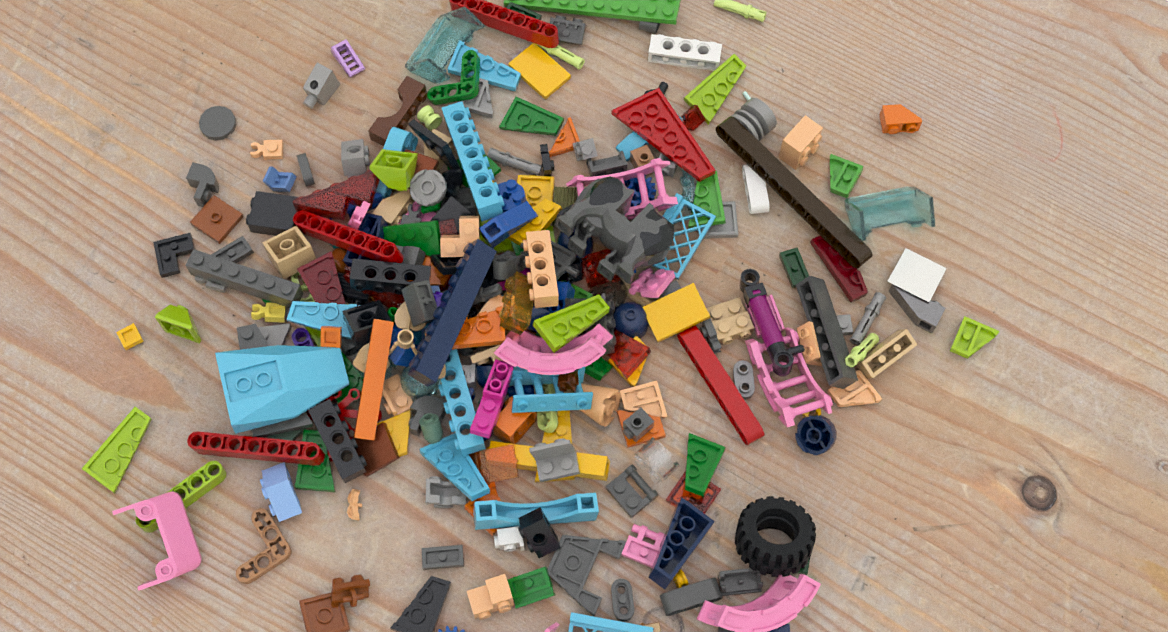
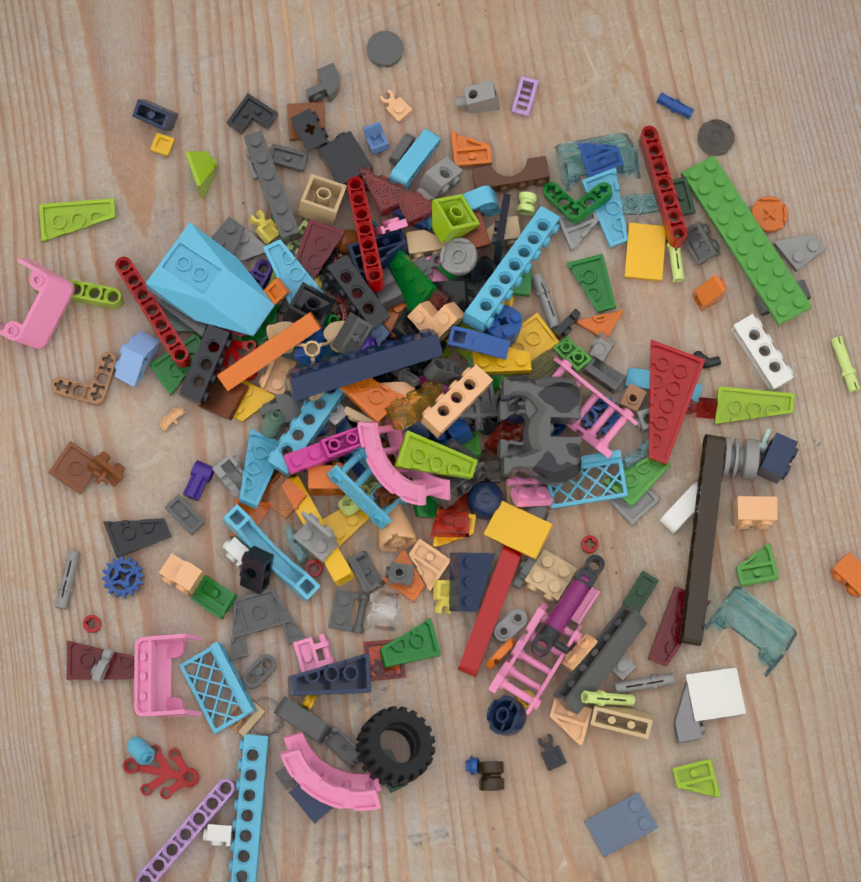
camera: 50 degrees right, 10 degrees up
(101, 321) = (155, 115): none -> dark blue brick
(235, 224) = (301, 122): none -> black brick
(321, 162) = (415, 158): none -> medium azure beam
(352, 126) = (469, 152): none -> orange wing
(423, 522) = (200, 476): none -> dark purple piece
(442, 43) = (599, 157): none -> blue wing
(501, 46) = (639, 204): none -> clear light blue slope
(549, 491) = (297, 549): none -> clear light blue slope
(565, 174) = (572, 353): none -> bright green slope
(573, 484) = (311, 563): none -> red bush
(610, 49) = (709, 292): none -> orange slope
(618, 455) = (365, 572): none -> dark grey hinge
(678, 408) = (441, 593): none -> light yellow plate
(683, 380) = (468, 579): none -> dark blue wedge
(729, 280) = (594, 540): none -> red bush
(762, 398) = (500, 654): none -> orange tile
(773, 93) = (777, 457): none -> dark blue brick
(833, 493) = (472, 765): none -> blue plate
(846, 483) = (491, 775): none -> dark brown wheel
(872, 427) = (552, 755): none -> black plate
(967, 418) = (621, 824): none -> sand blue slope

